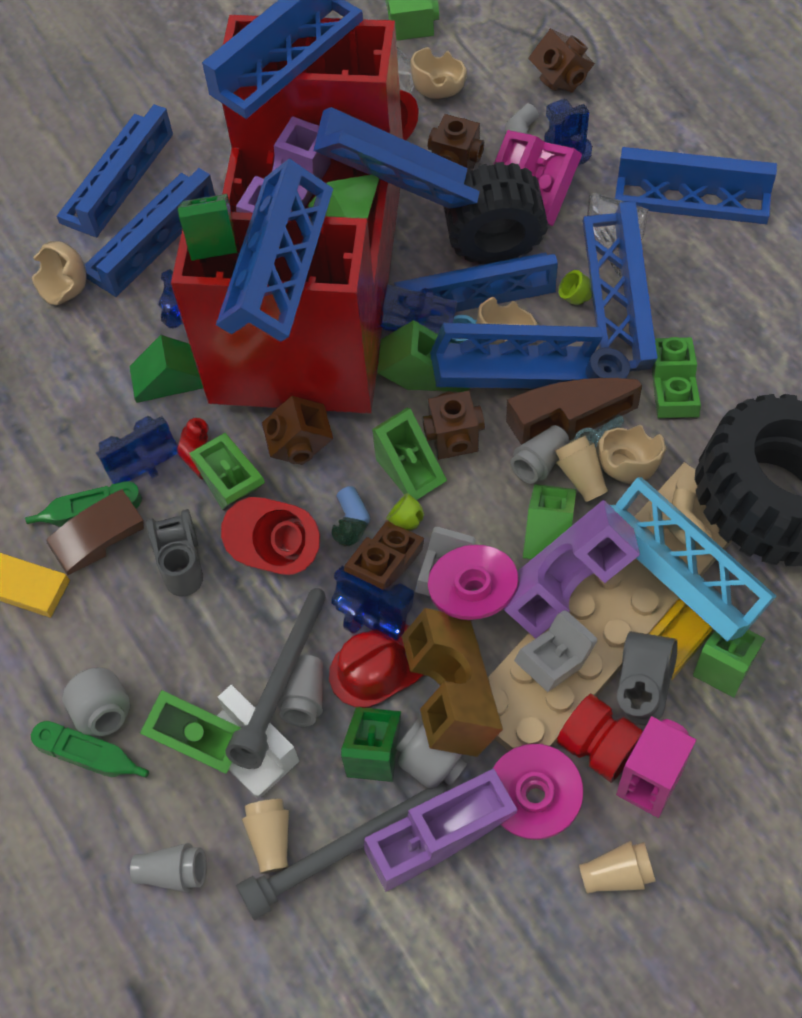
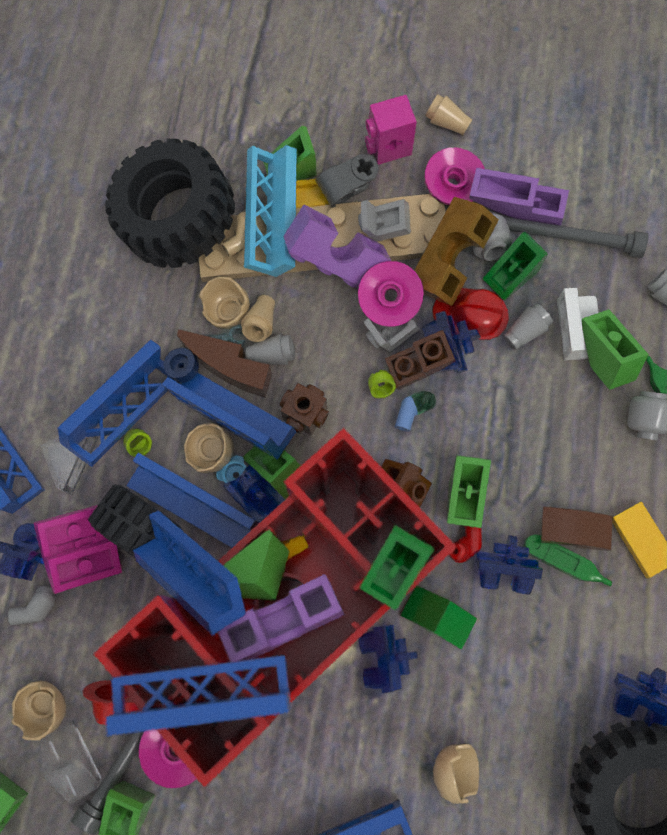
camera: 140 degrees left, 15 degrees up
(146, 234) = (357, 750): blue fence -> none
(176, 546) = (533, 480): dark grey piece -> none
(249, 744) = (591, 299): dark grey piece -> none
(261, 247) = (377, 501): blue fence -> none
(268, 833) = (605, 270): tan cone -> none
(270, 535) = (472, 423): red piece -> none
(407, 455) = (349, 412): bright green slope -> none
(457, 141) = (106, 620): reddish brown brick -> none
(548, 517) = (308, 304): bright green slope -> none
(596, 734) = (399, 170): red wheel -> none
(675, 378) = (154, 325): bright green slope -> none

